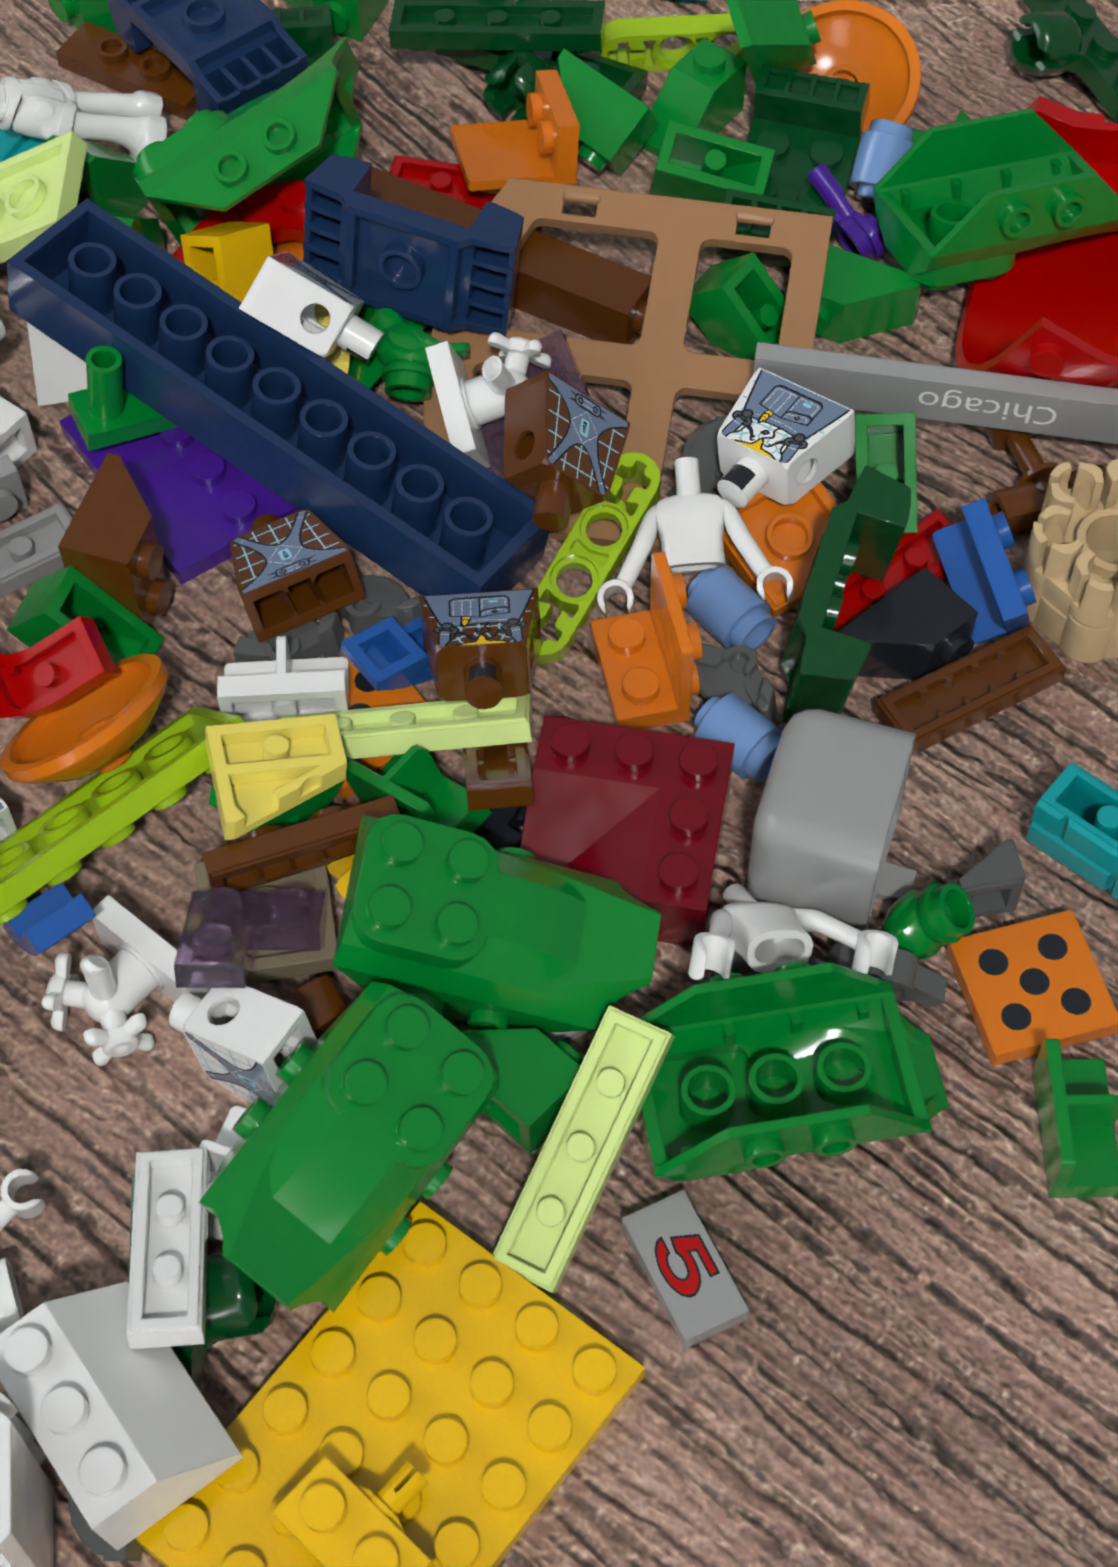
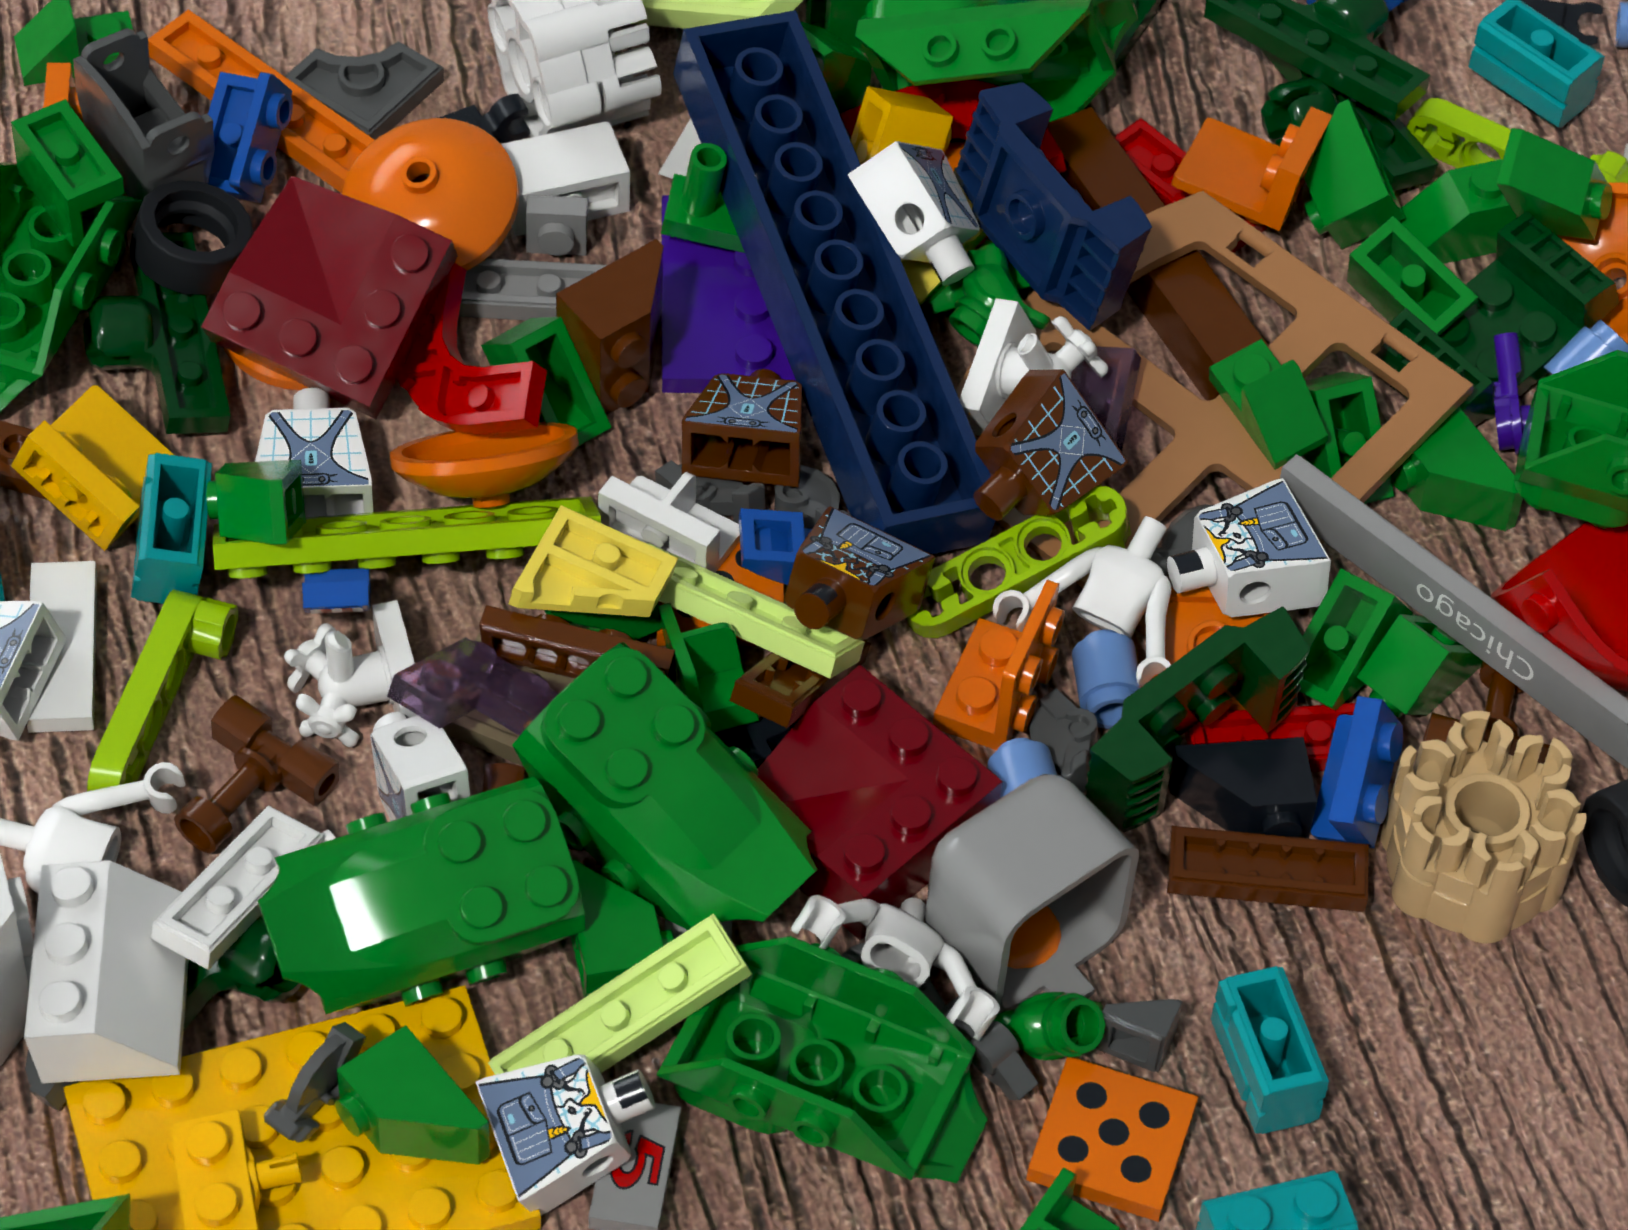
camera: 30 degrees right, 5 degrees down
(88, 1113) = (261, 763): none -> reddish brown bar
(376, 1380) = (315, 1085): none -> dark grey piece
(473, 1346) = (410, 1103): none -> green slope
(613, 1276) = (561, 1126): none -> torso
(692, 317) = (1270, 402): none -> green slope
(951, 464) = (1417, 666): none -> green slope

